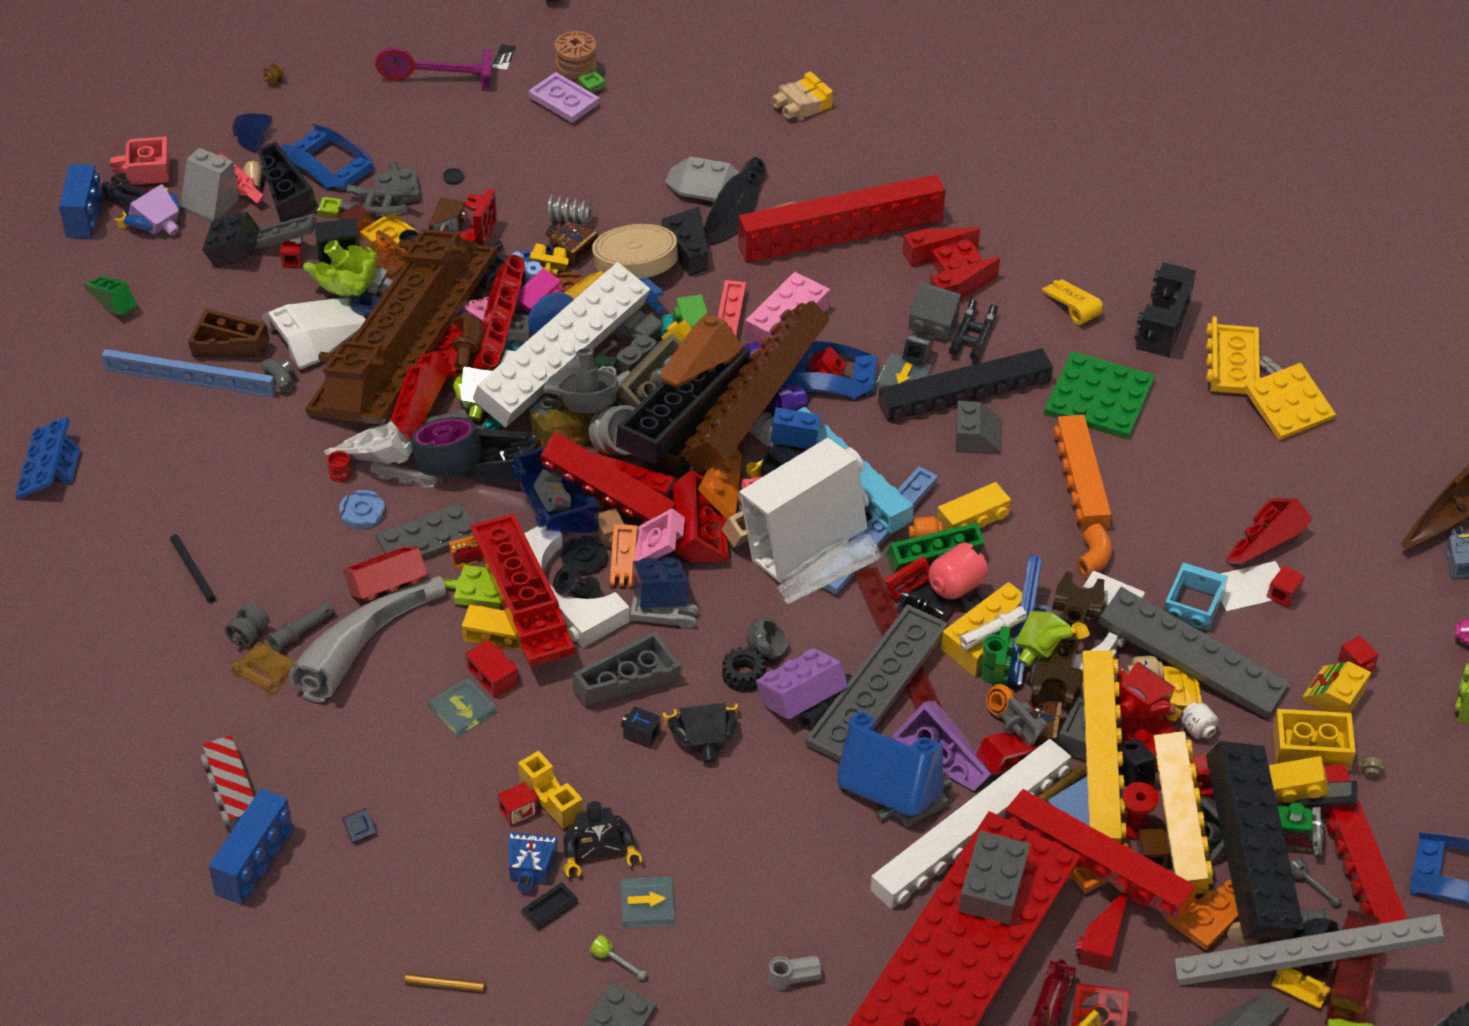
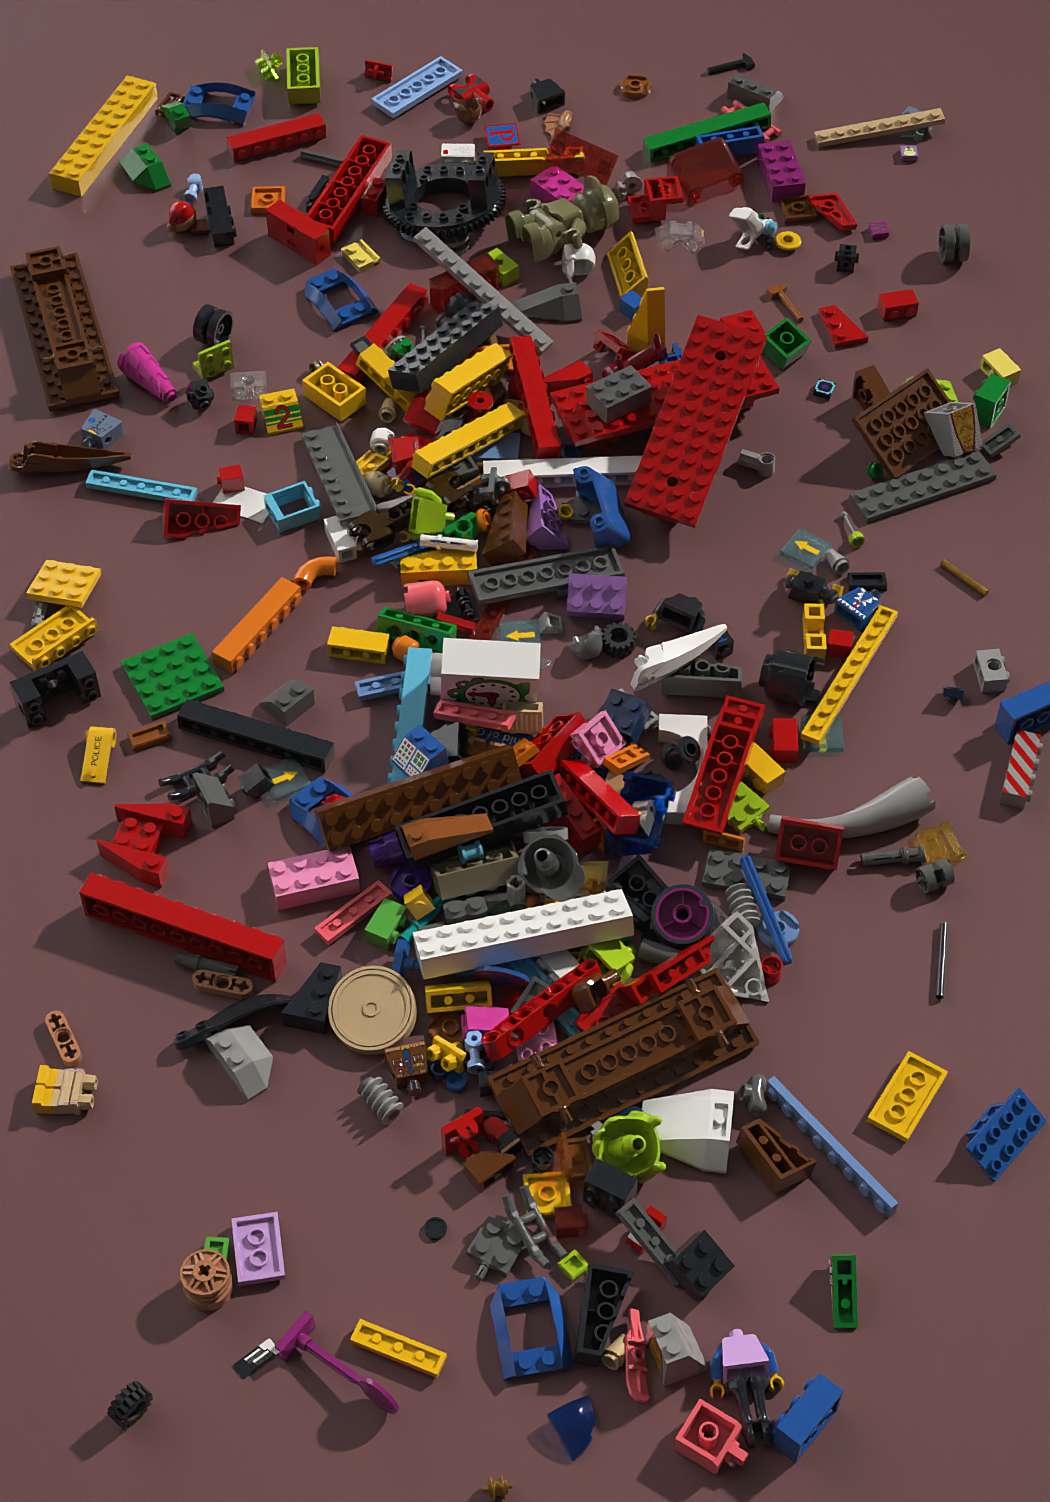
camera: 140 degrees left, 5 degrees up
(148, 444) = (907, 1096): none -> yellow plate
(346, 879) = (991, 670): none -> light grey brick
(381, 503) = (766, 910): none -> blue axle
(403, 495) = (741, 900): none -> light grey piece
(410, 101) = (398, 1348): none -> yellow plate
(480, 777) = (848, 675): none -> yellow plate
(532, 716) = (790, 677): none -> black piece
(598, 902) = (837, 562): none -> light grey cone
(656, 637) = (672, 656): none -> white piece
(828, 646) = (550, 624): none -> light grey slope
(832, 124) = (63, 1030): none -> nougat beam
(840, 617) = (520, 631): none -> clear light blue tile
(878, 900) = (695, 421): none -> red piece
(961, 698) = (508, 531): none -> reddish brown wedge
(1055, 339) = (149, 736): none -> dark orange tile
(1353, 528) = (139, 487): none -> medium azure plate
(1405, 695) = (248, 385): none -> clear brick
(1432, 646) = (199, 394): none -> black brick

